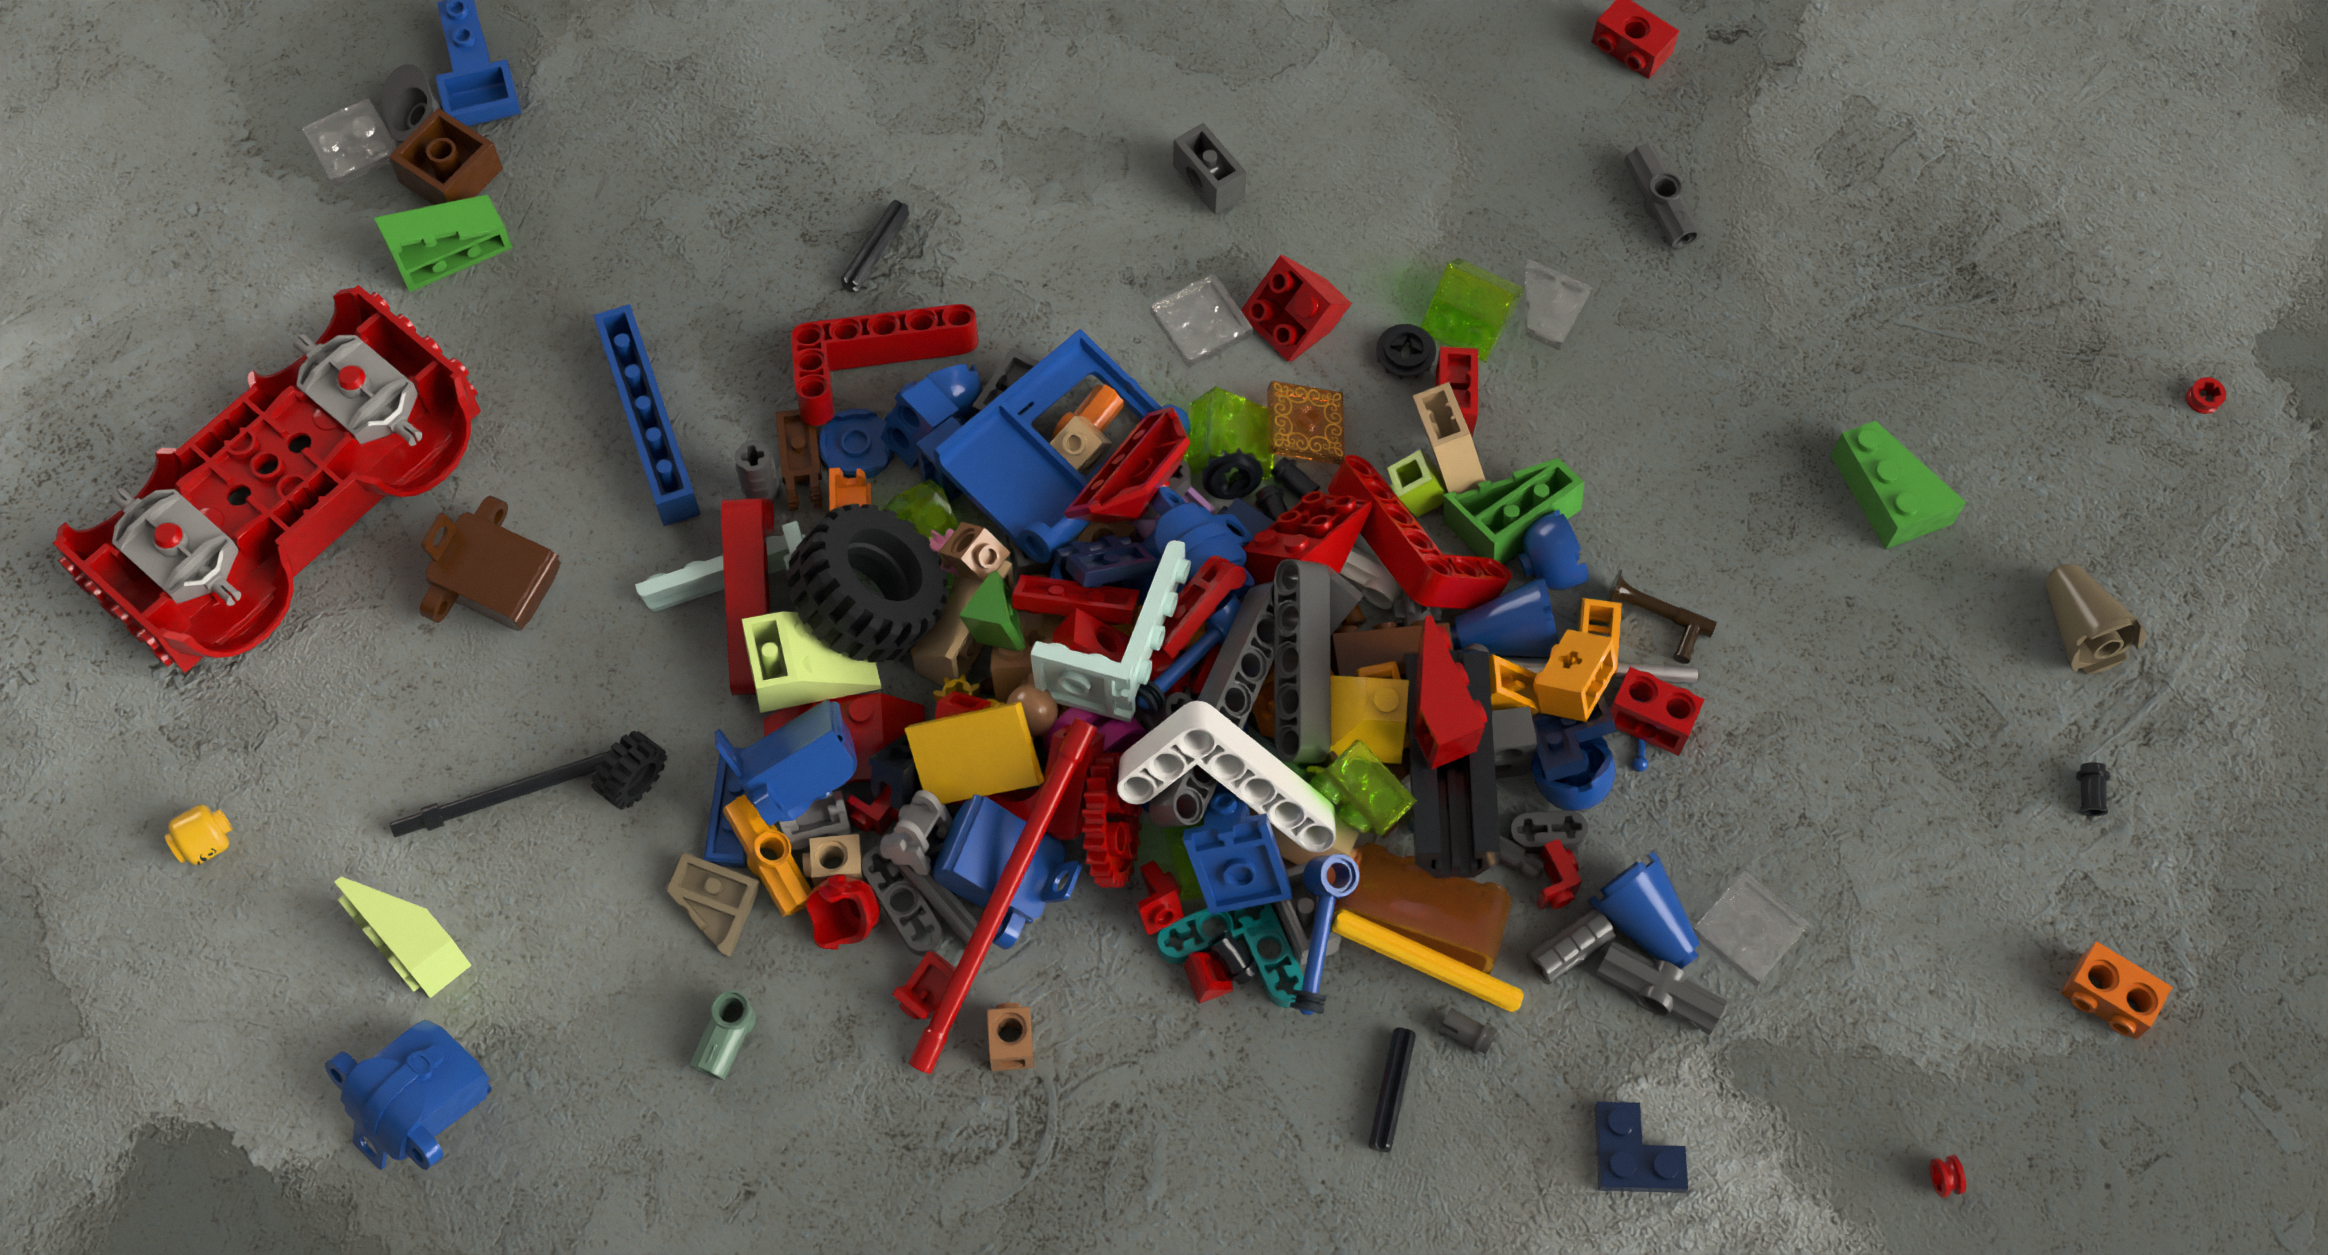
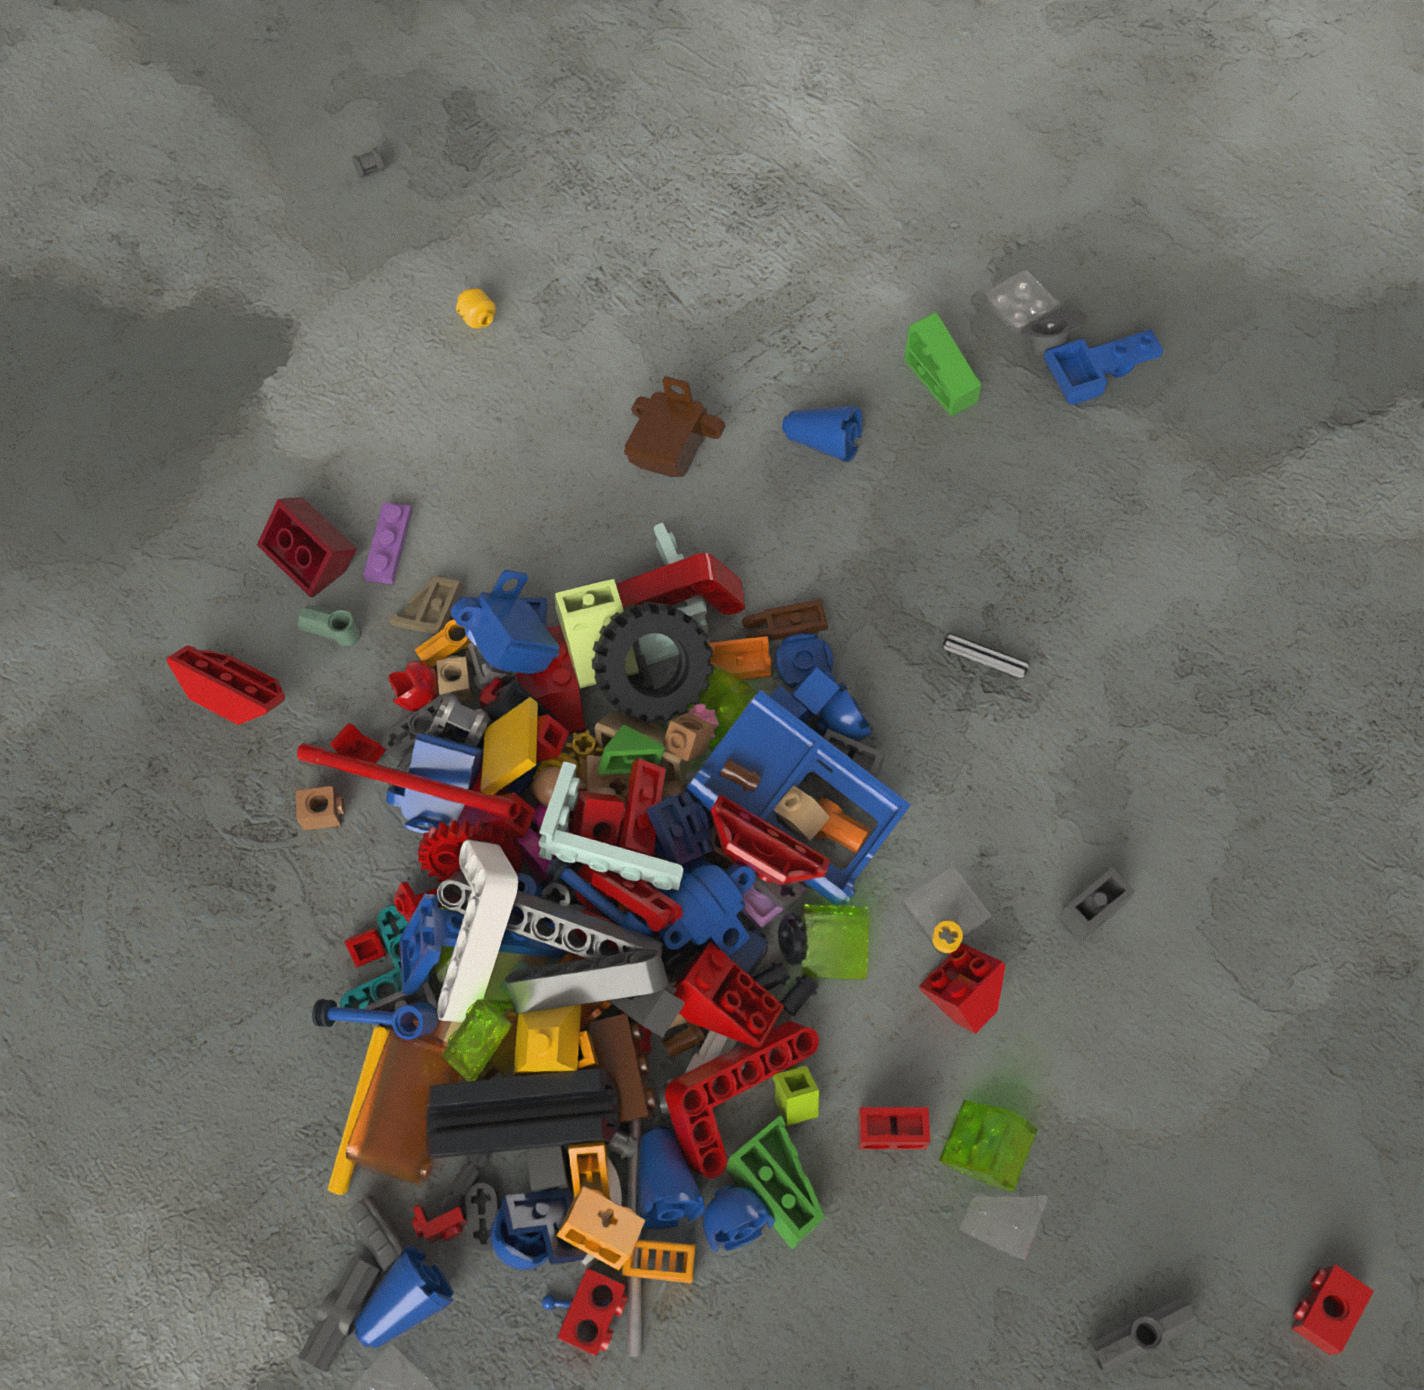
camera: 90 degrees right, 0 degrees up
(219, 575) = (771, 354): red piece -> none
(405, 936) = (398, 424): yellowish green slope -> none
(409, 1093) = (292, 446): blue piece -> none
(434, 816) = (493, 436): black bar -> none
(445, 160) = (1008, 357): reddish brown brick -> none
(518, 382) = (826, 429): none -> blue cone
(586, 1075) = (305, 545): none -> dark red slope
(594, 962) = (388, 543): none -> medium lavender plate
(629, 770) = (519, 538): black tyre -> none
(647, 415) = (806, 513): blue brick -> none
(757, 471) = (759, 588): dark grey axle -> none
(812, 1166) = (225, 684): none -> red wedge
(872, 341) = (890, 650): red beam -> none
(1041, 486) = (741, 775): none -> reddish brown pin
(1238, 964) = (374, 962): black pin -> none
(1249, 310) = (941, 944): none -> yellow bush
(1305, 422) = (853, 1000): clear orange plate -> none
(1392, 1090) = (269, 1090): black axle -> none
(1421, 348) = (950, 1077): black gear -> none
(1444, 715) = (535, 1089): red slope -> none
(1449, 439) = (829, 1116): tan slope -> none
(1468, 1031) = (311, 1149): dark grey pin -> none
(1627, 1163) = (197, 1285): dark blue plate -> none
(1692, 622) = (685, 1353): dark brown piece -> none

